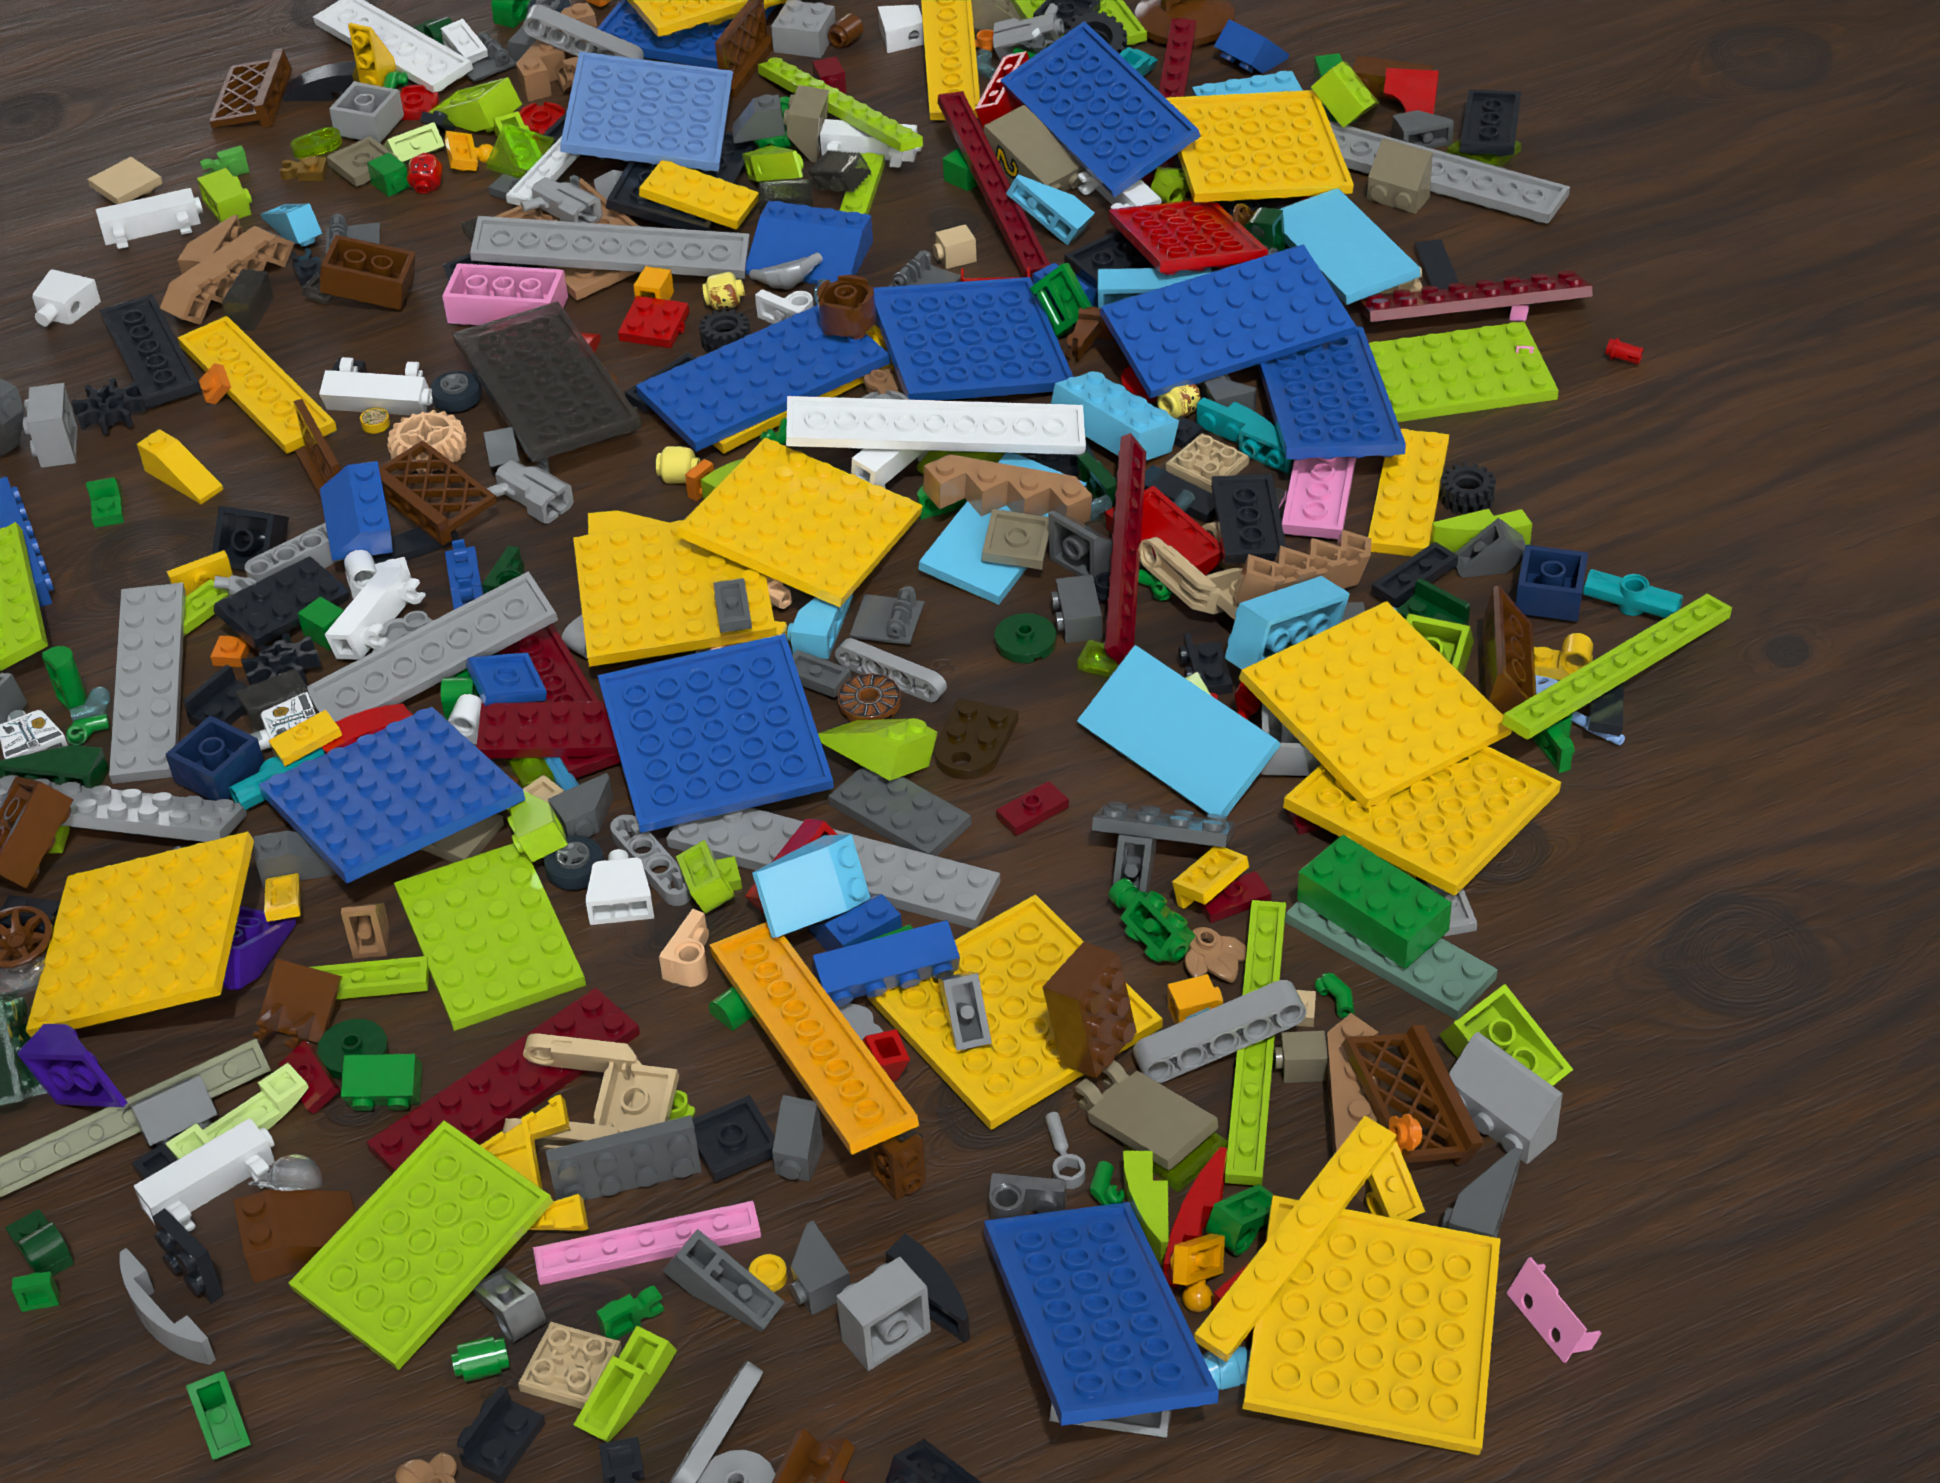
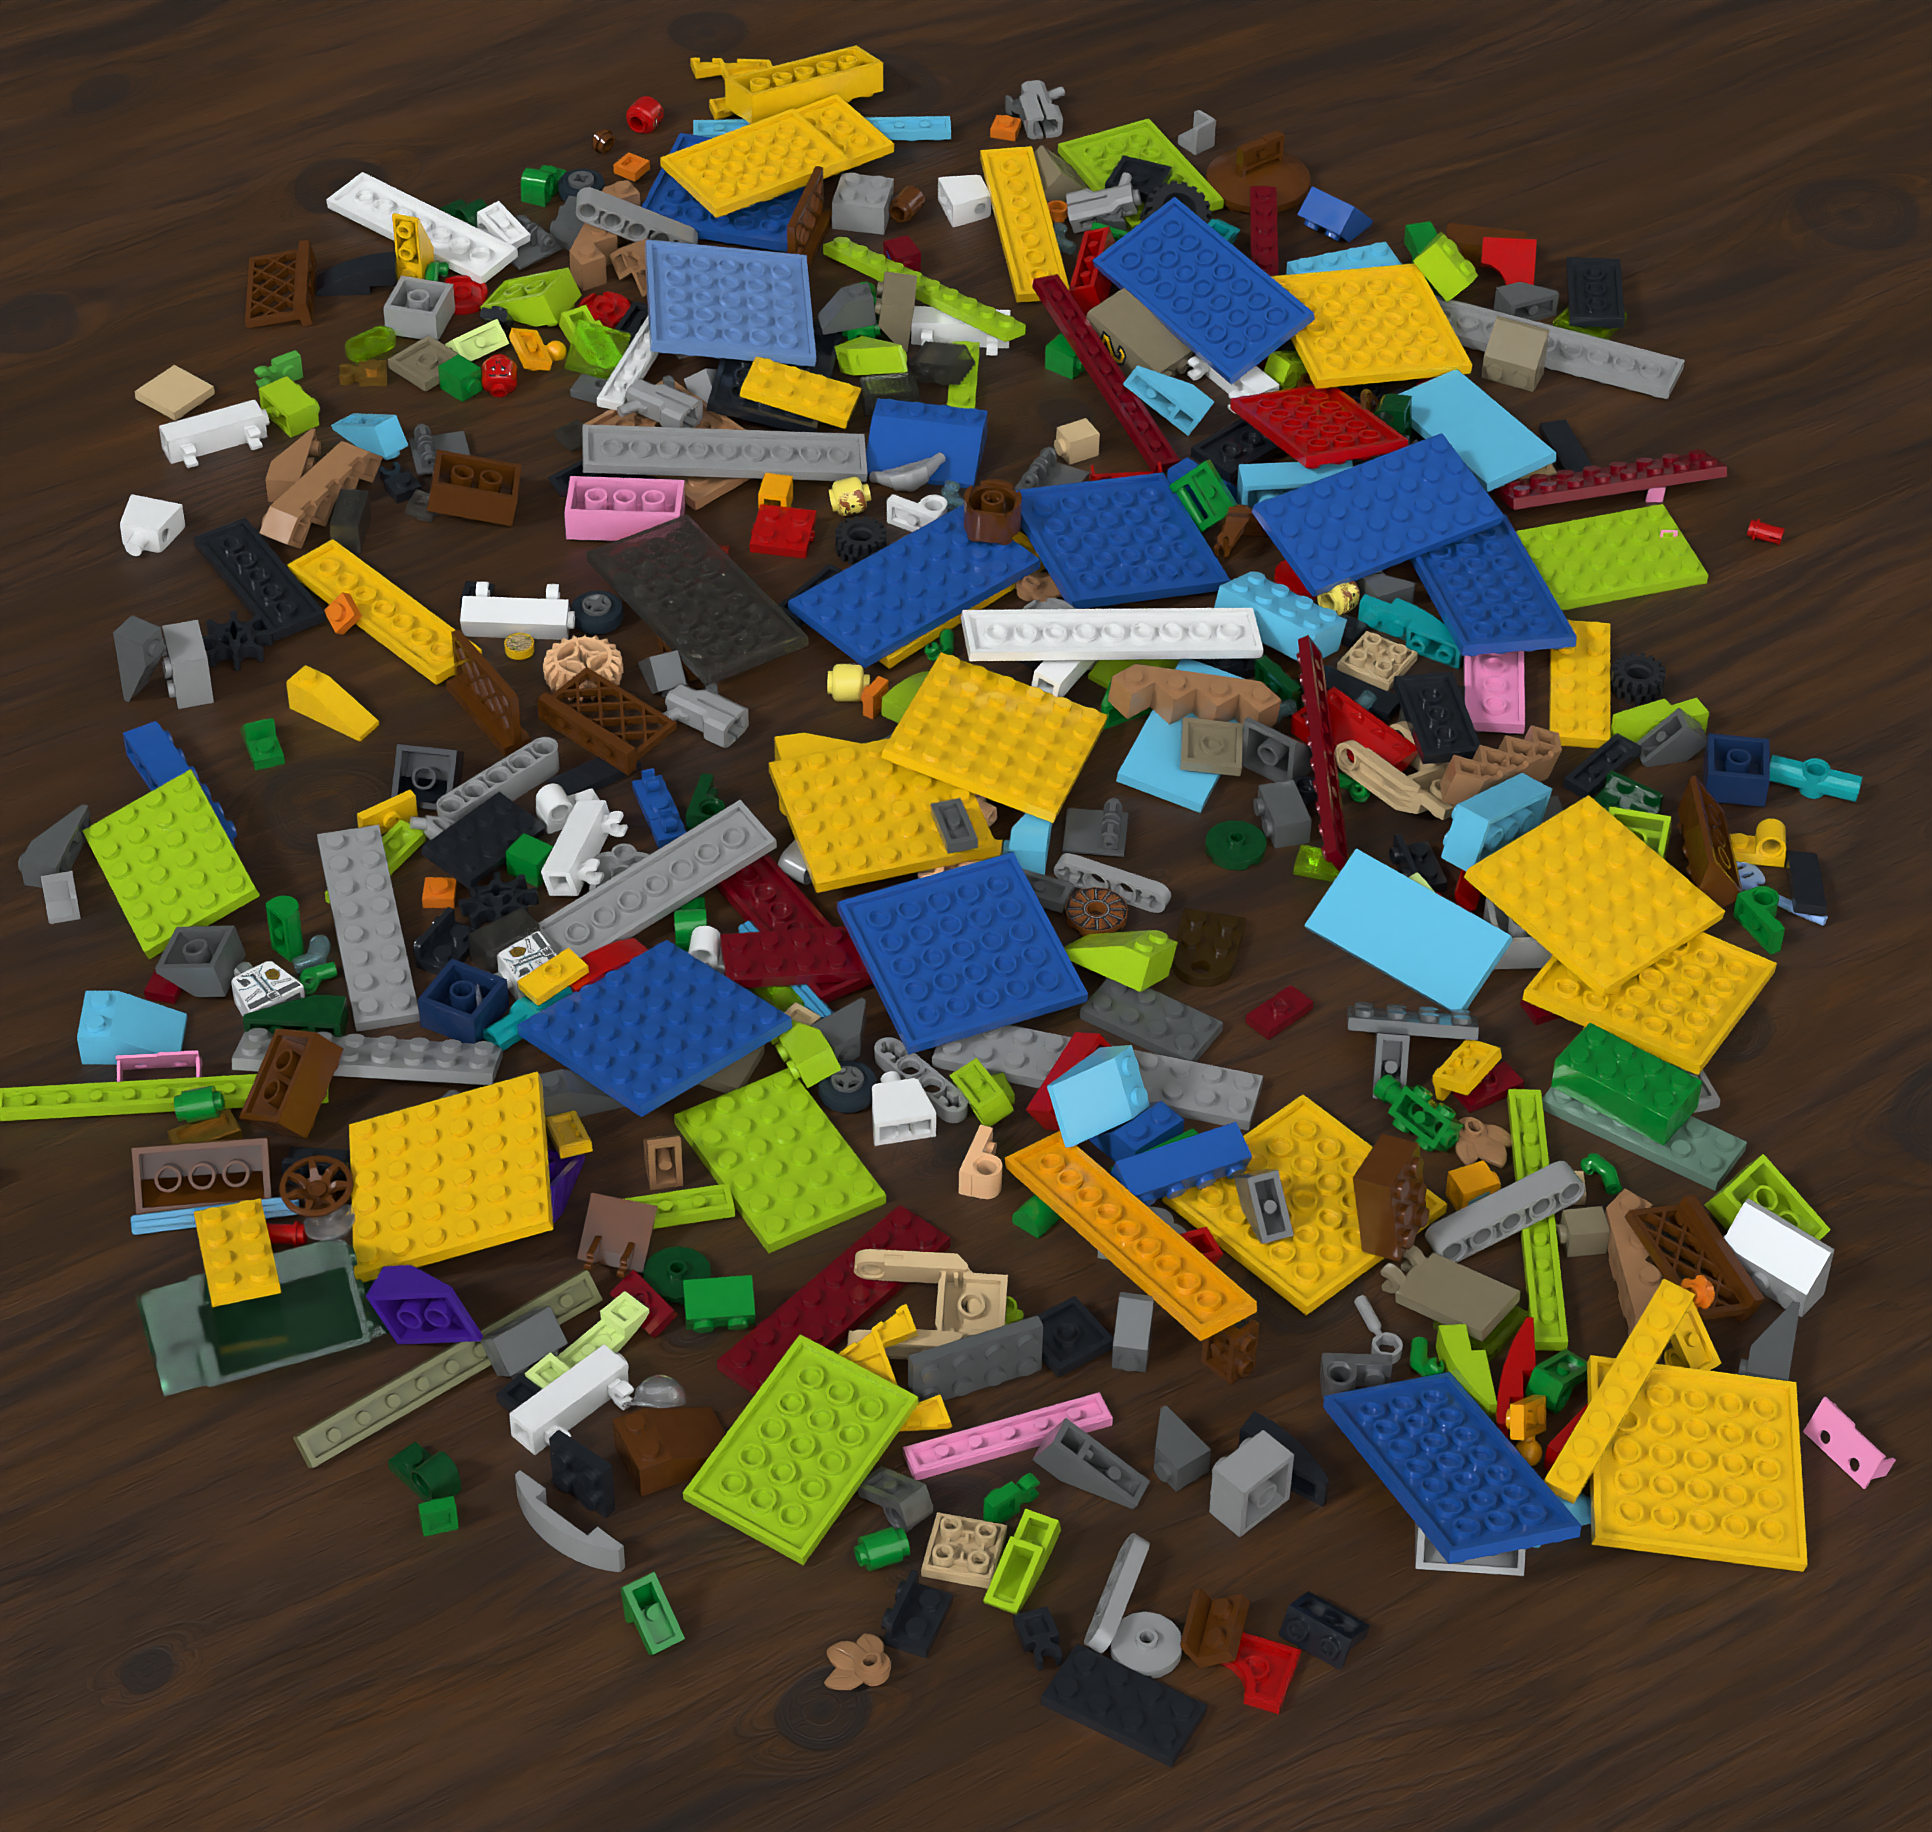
camera: 10 degrees left, 0 degrees up
(356, 511) = (542, 744): blue slope -> none
(506, 678) = (737, 908): blue tile -> none
(770, 1271) = (1131, 1453): yellow tile -> none
(1616, 666) = (1813, 849): lime plate -> none

